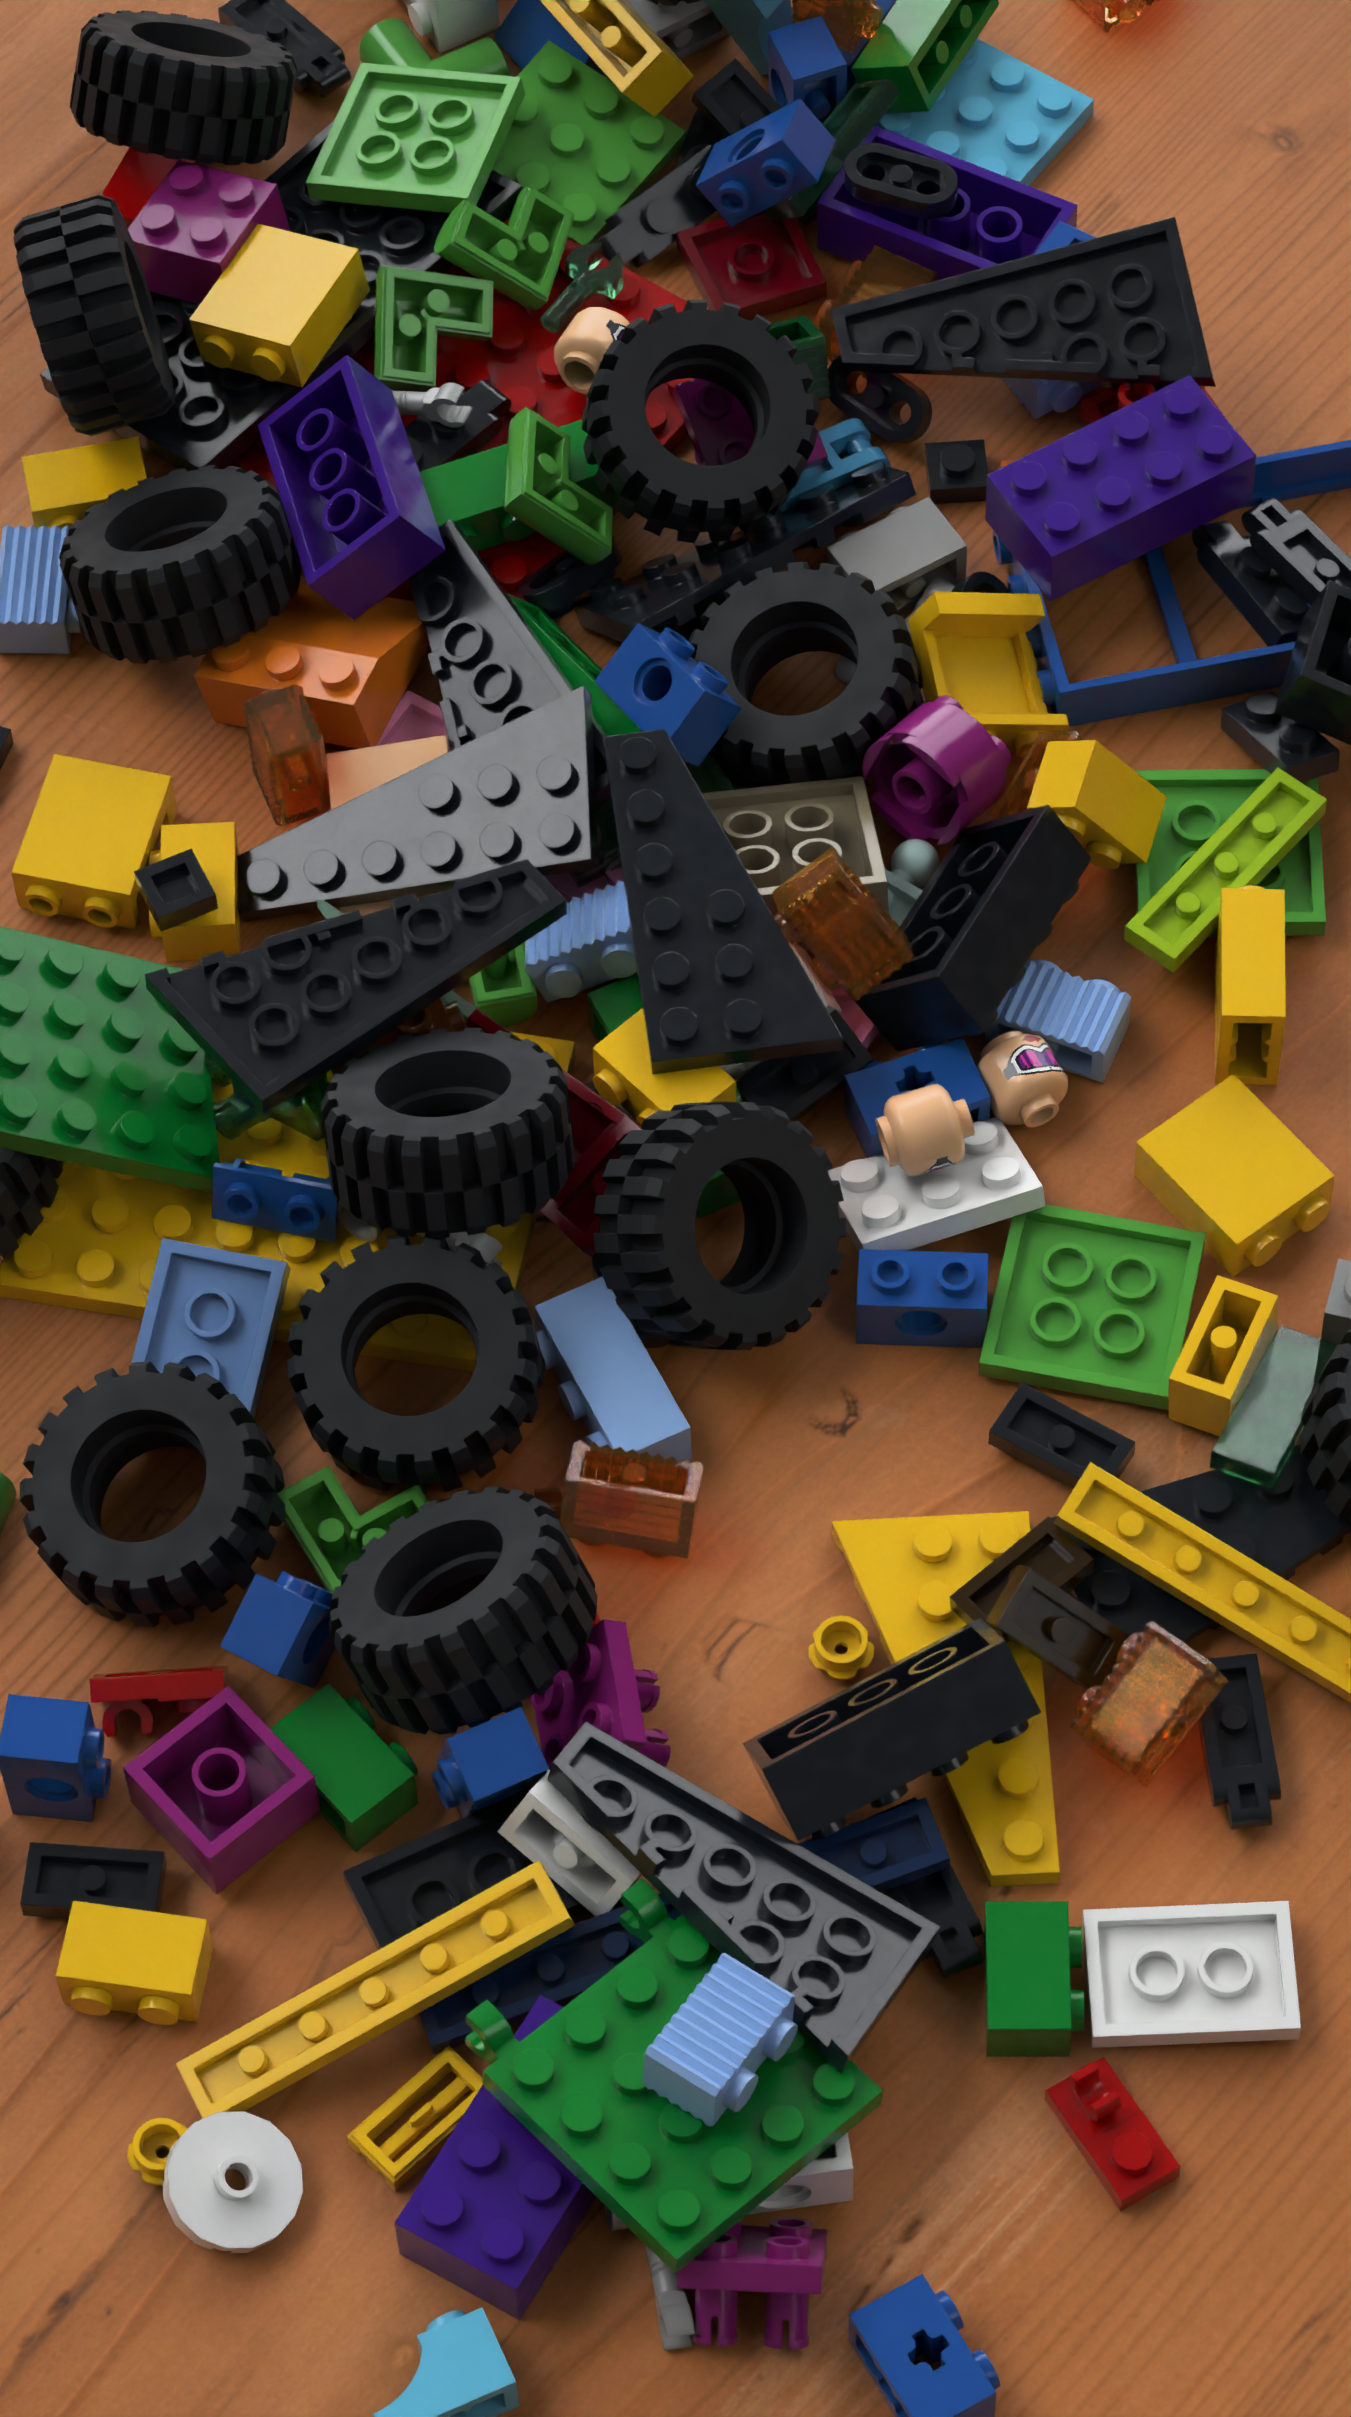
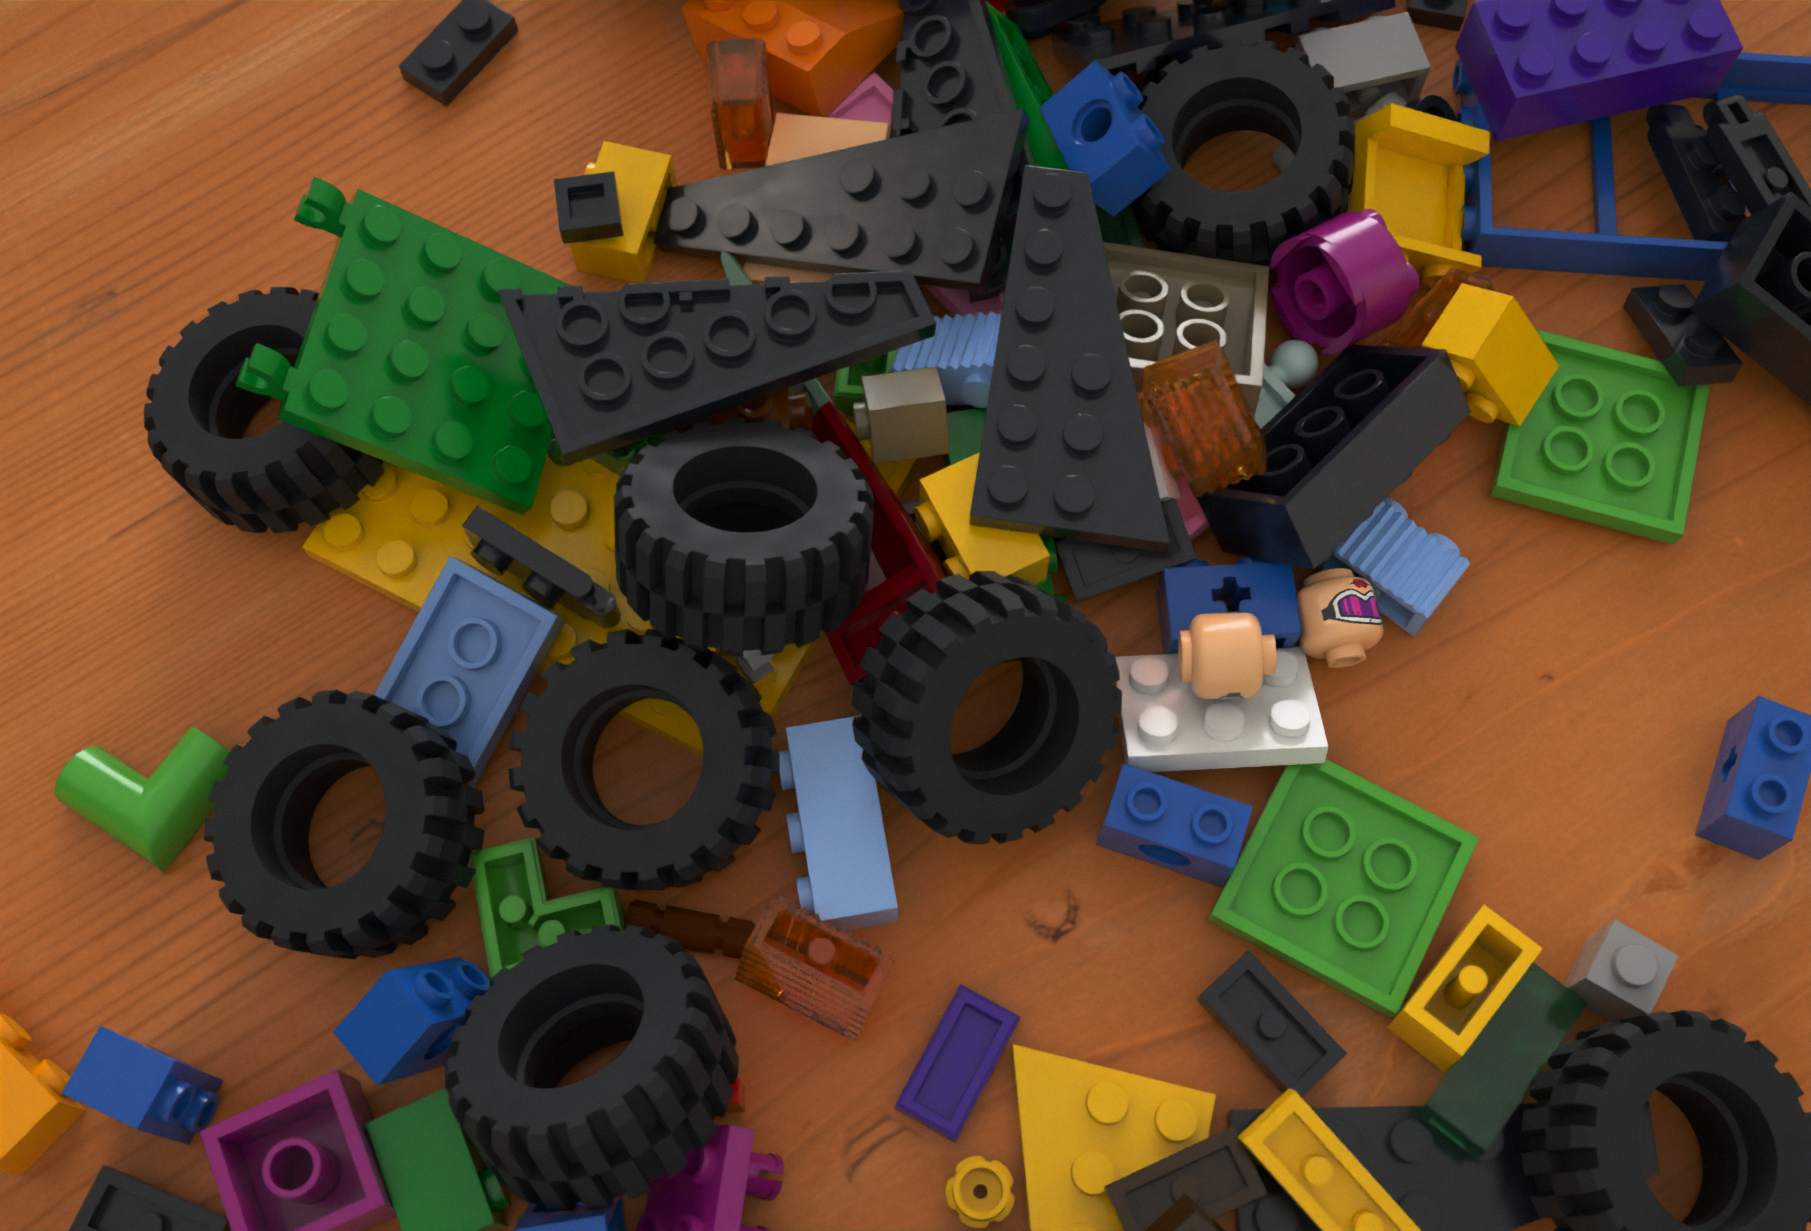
camera: 15 degrees right, 10 degrees up
(89, 838) = (541, 130): yellow panel -> none
(127, 1690) = (279, 1028): red plate -> none
(250, 1229) = (544, 574): none -> black hinge
(273, 1201) = (564, 530): blue hinge -> none
(554, 1000) = (903, 415): none -> dark tan brick
(786, 1555) = (957, 1063): none -> dark purple tile
(1233, 857) = (1598, 457): lime plate -> none
(1234, 1175) = (1525, 782): yellow brick -> none
(1250, 985) = (1595, 585): yellow brick -> none

